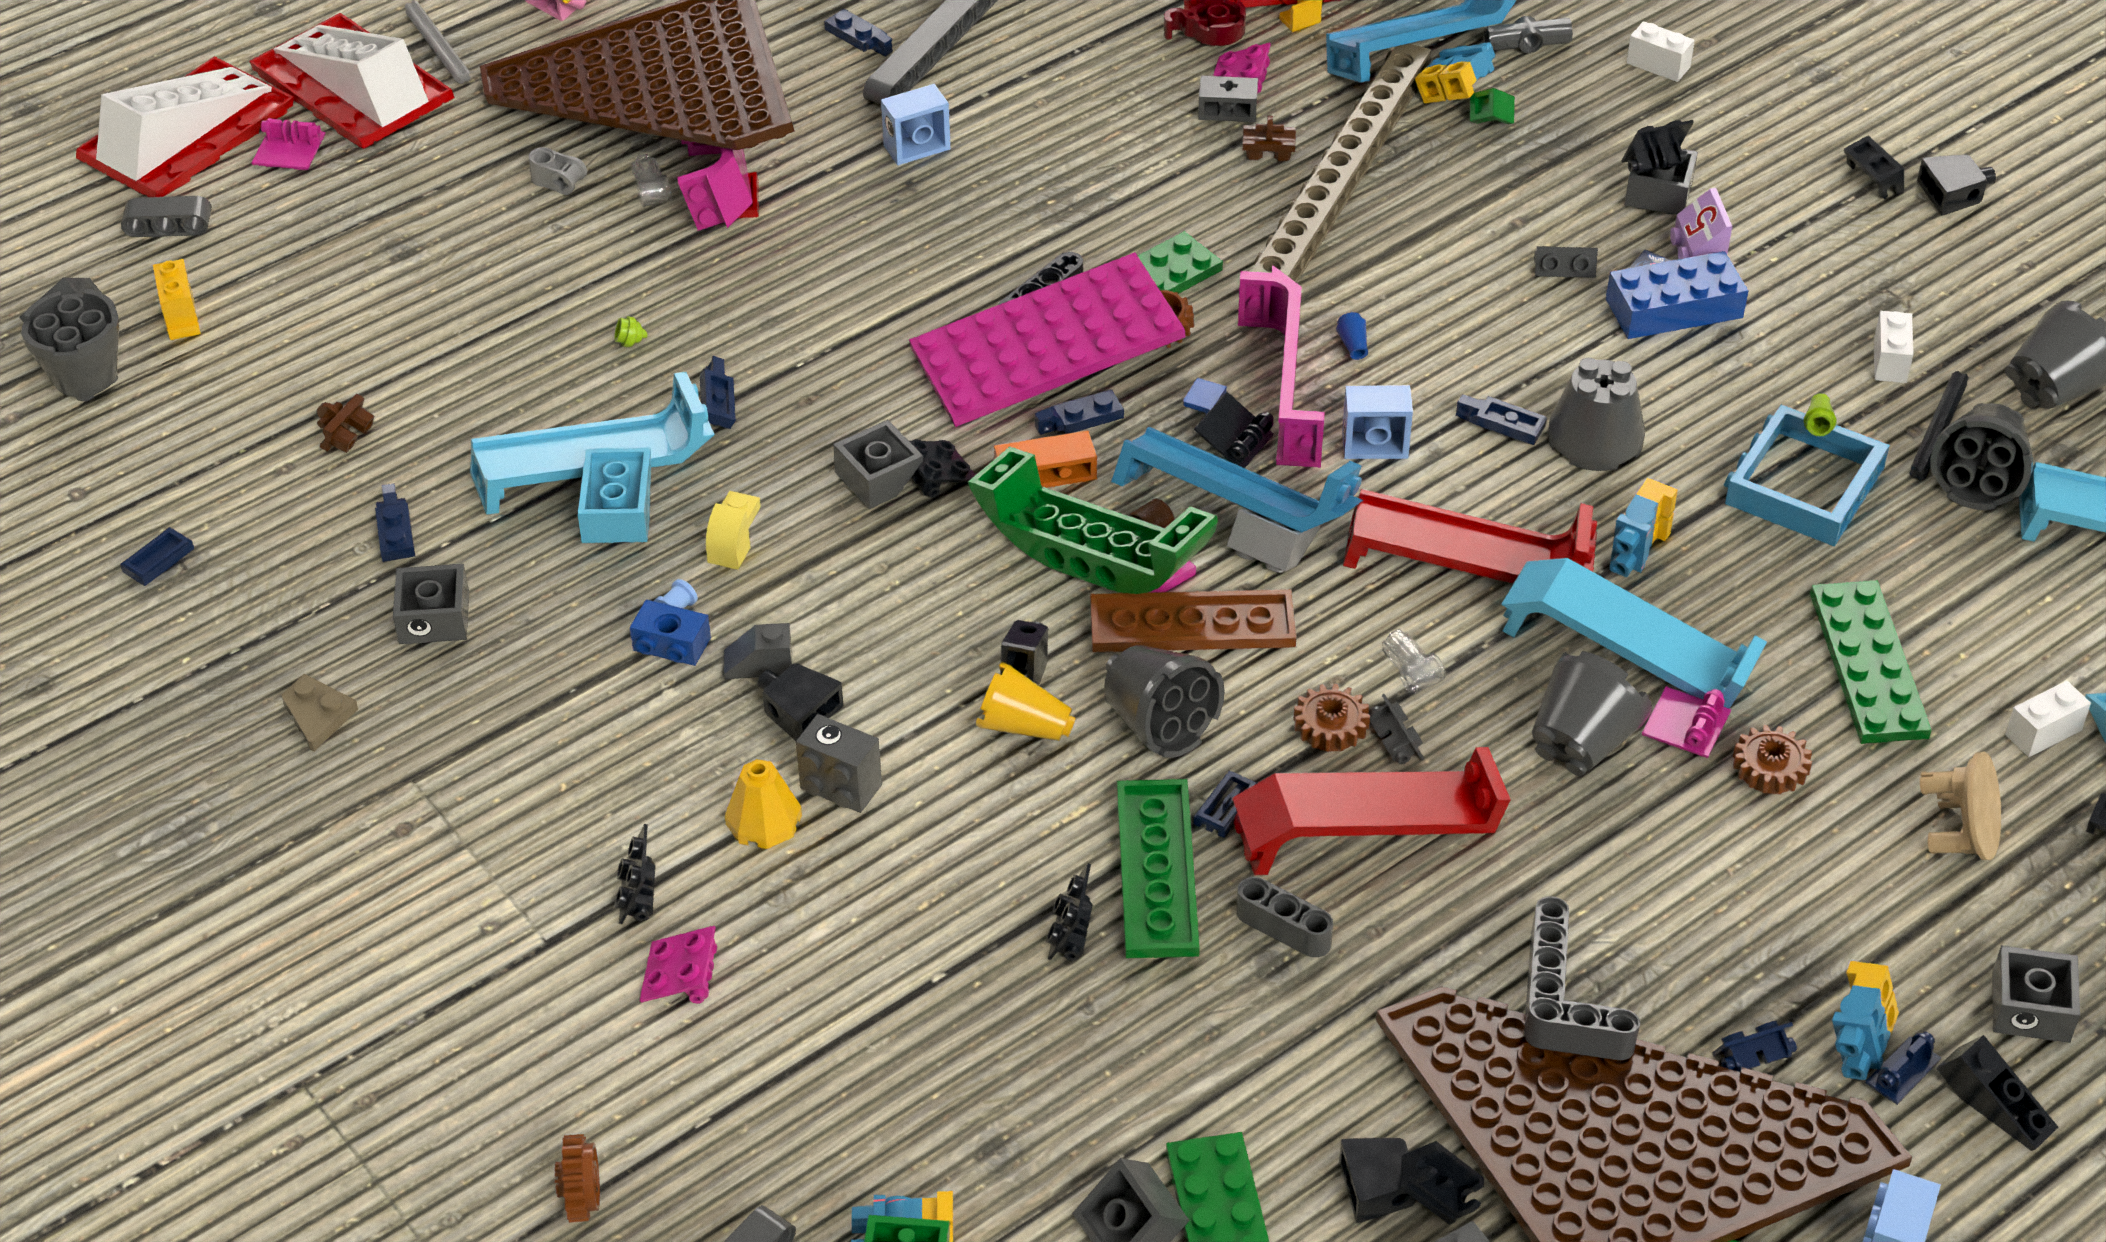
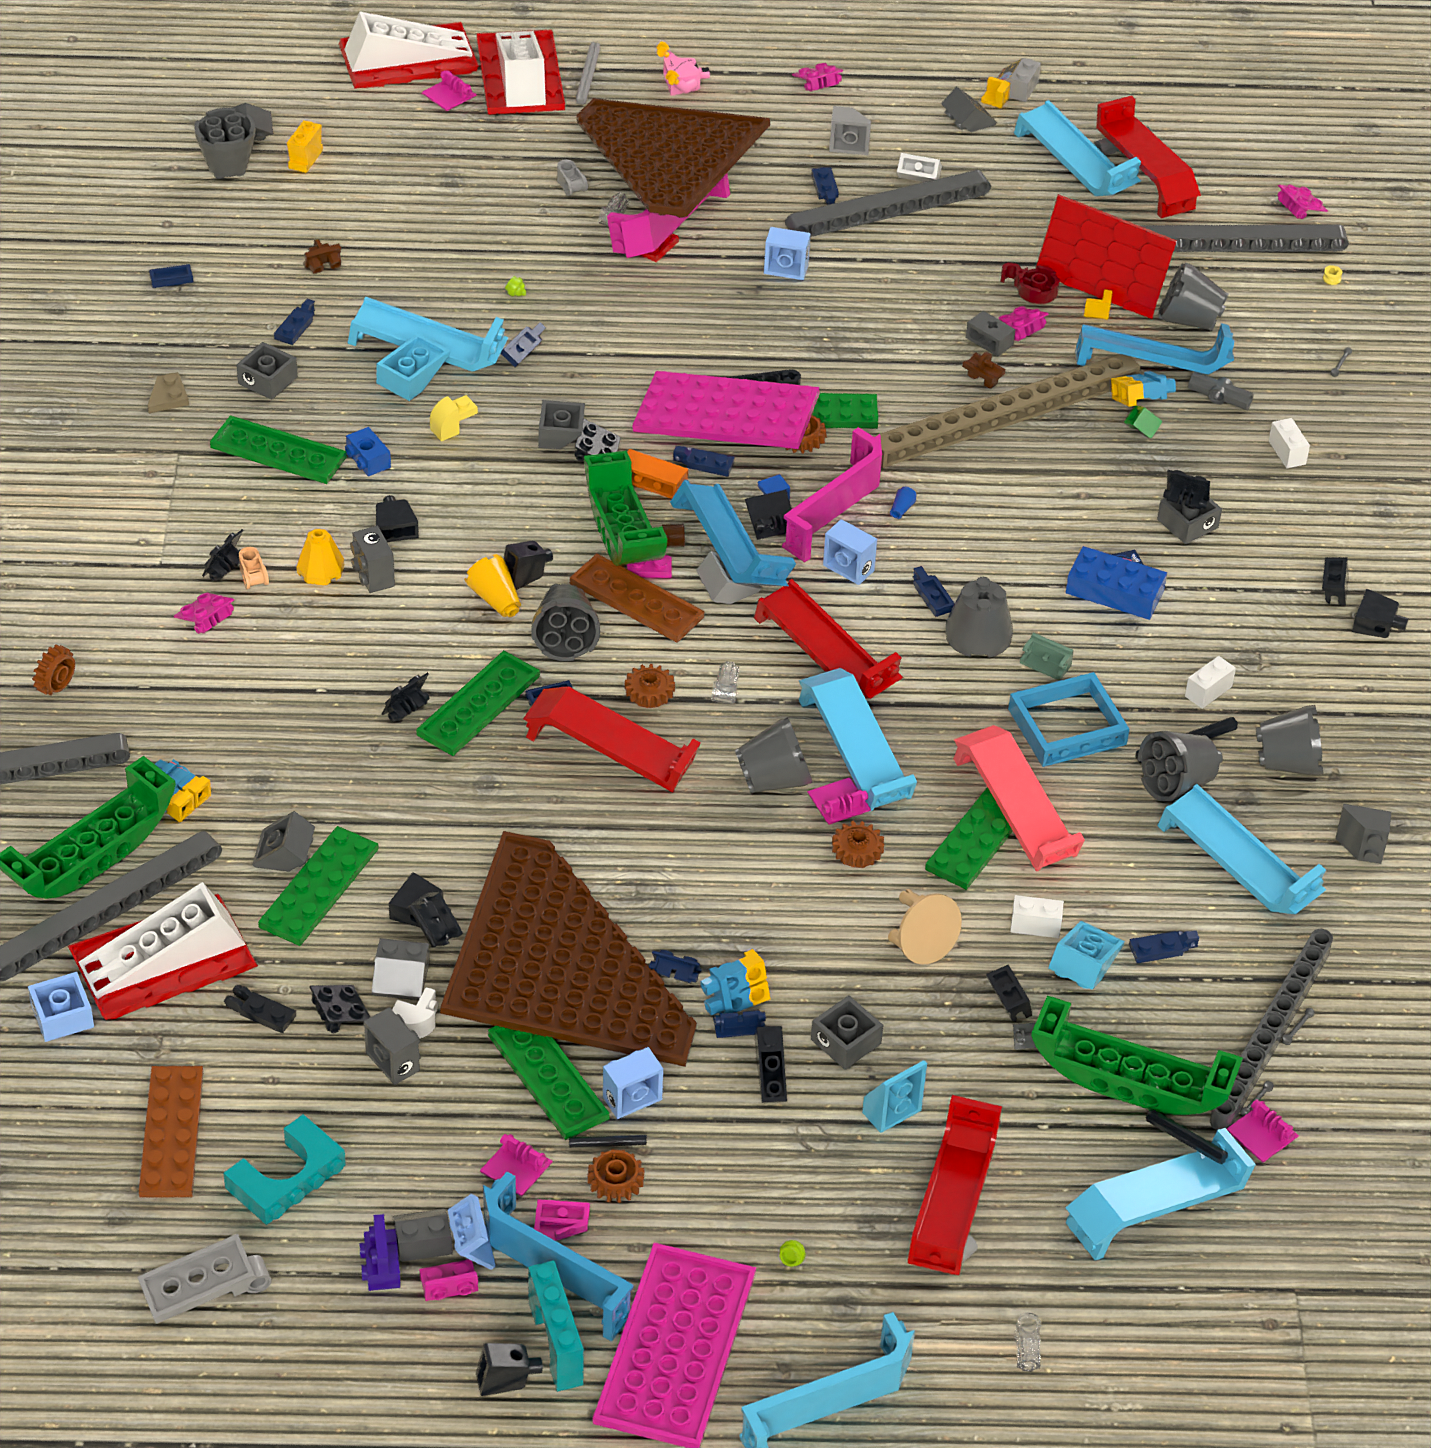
camera: 35 degrees right, 0 degrees up
(166, 216) = (348, 99): dark grey beam -> none
(547, 697) = (278, 449): none -> green plate
(680, 595) = (389, 436): light blue bush -> none
(686, 871) = (252, 567): none -> light nougat piece
(758, 650) = (403, 486): dark grey slope -> none
(1284, 917) = (512, 762): dark grey beam -> none
(1403, 741) = (678, 713): dark grey hinge -> none
(1561, 1023) = (581, 880): dark grey beam -> none
(1565, 261) = (1077, 530): dark grey hinge -> none
(1645, 519) = (928, 689): dark azure hips -> none
(1702, 227) = (1174, 557): lavender slope -> none
(1702, 418) = (1047, 656): none -> sand green hinge
(1820, 416) = (1102, 688): lime cone -> none
(1871, 589) = (1018, 795): none -> coral panel

